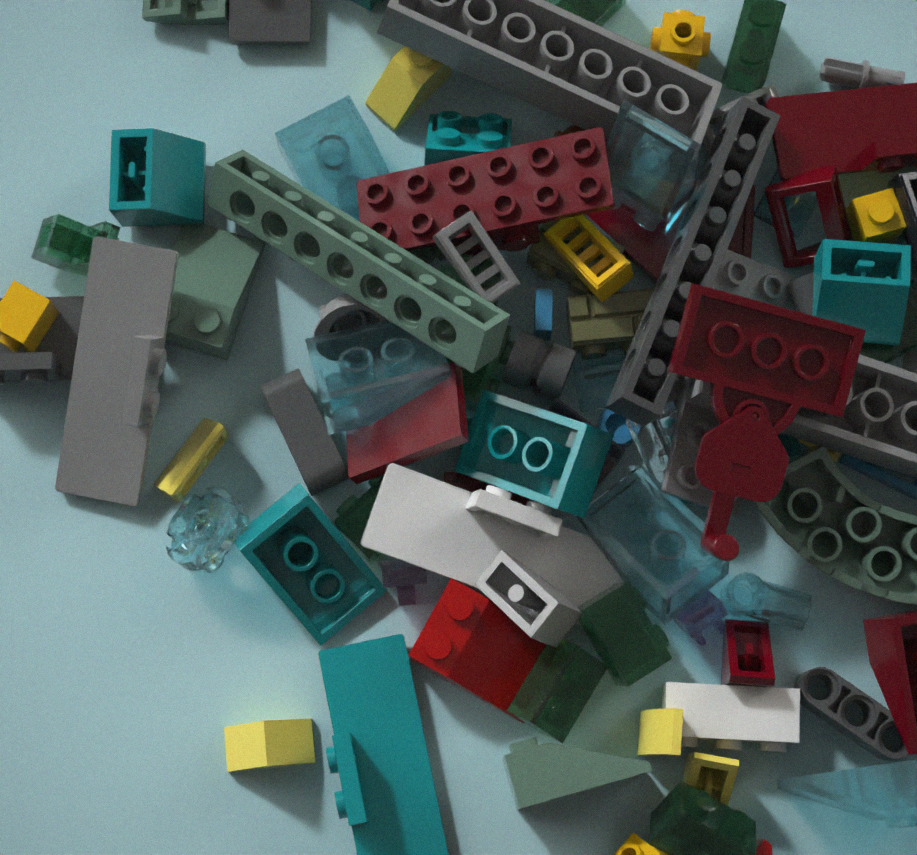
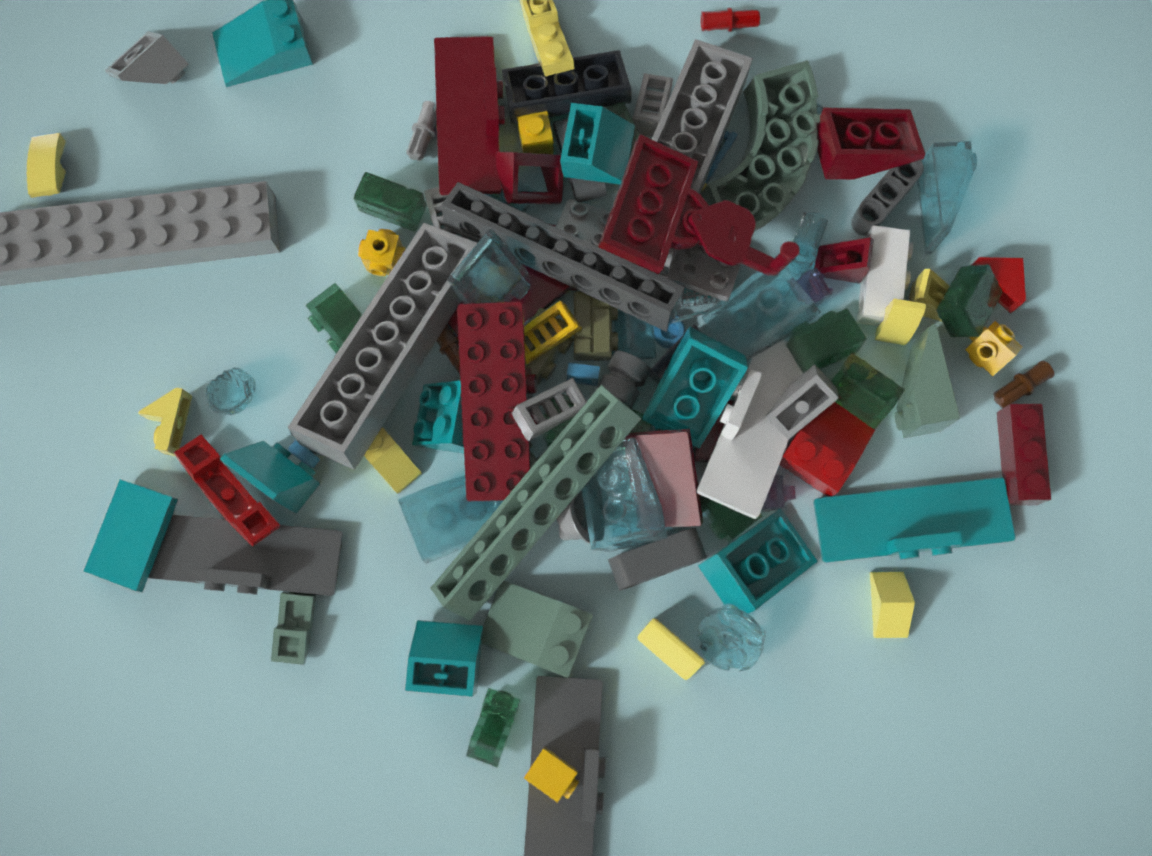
camera: 85 degrees left, 0 degrees up
(117, 370) = (602, 698): light grey bracket -> none

